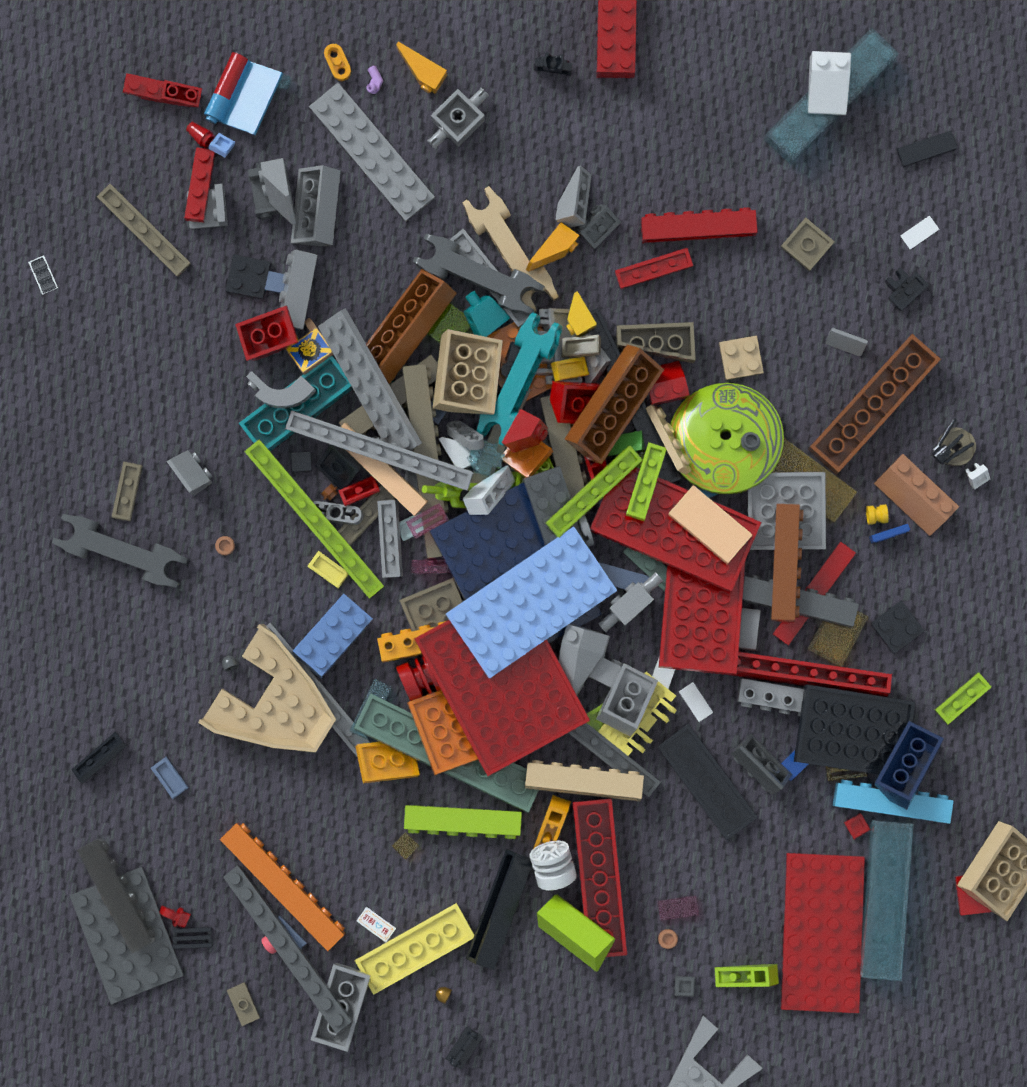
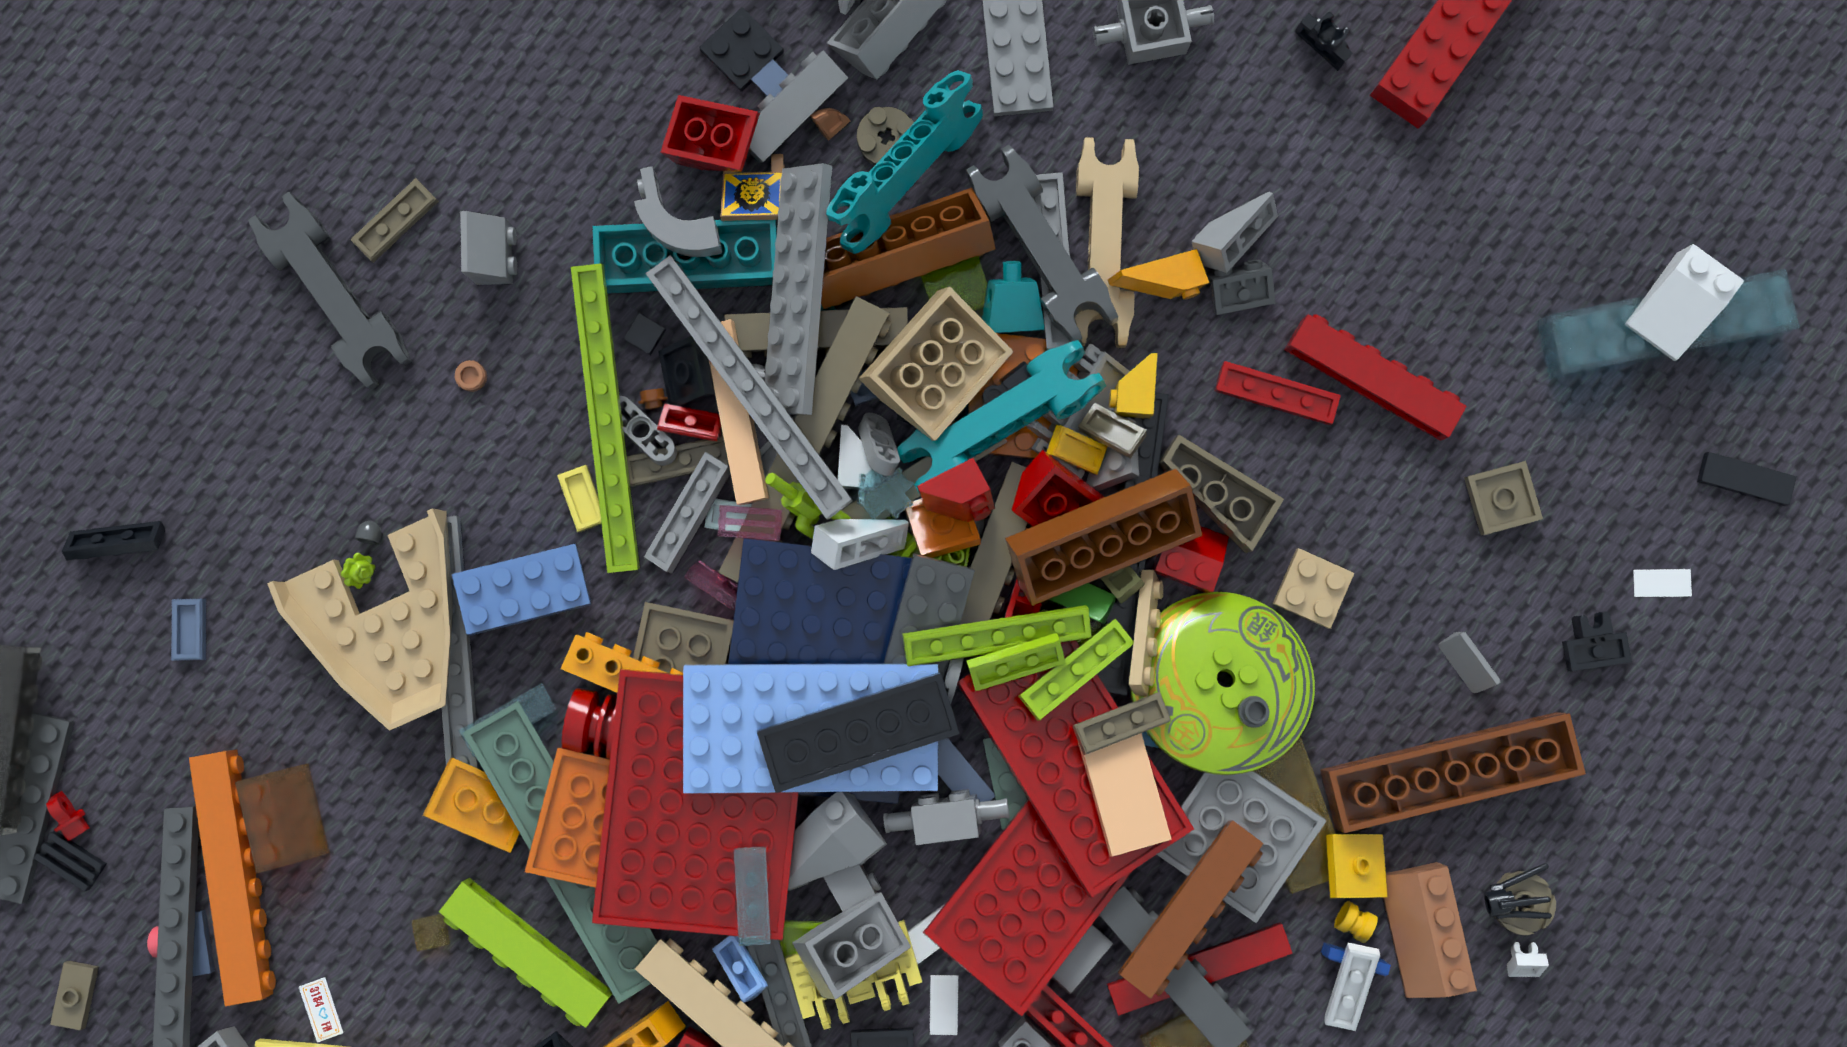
camera: 30 degrees right, 0 degrees up
(237, 686) = (358, 570): none -> lime plant
(288, 838) = (282, 818): none -> clear orange slope
(322, 283) = (829, 121): none -> nougat tile
(366, 277) = (877, 122): none -> dark tan plate
(375, 307) = (876, 192): none -> teal piece
(557, 586) = (857, 732): none -> black plate
(559, 707) = (752, 896): none -> clear light blue tile
(578, 751) = (740, 968): none -> light blue slope
(612, 498) = (1016, 662): none -> lime plate
(640, 421) = (1123, 583): none -> olive plate
(687, 493) = (1121, 723): none -> dark tan tile
(857, 485) = (1356, 865): none -> yellow plate
(896, 548) = (1351, 986): none -> white tile

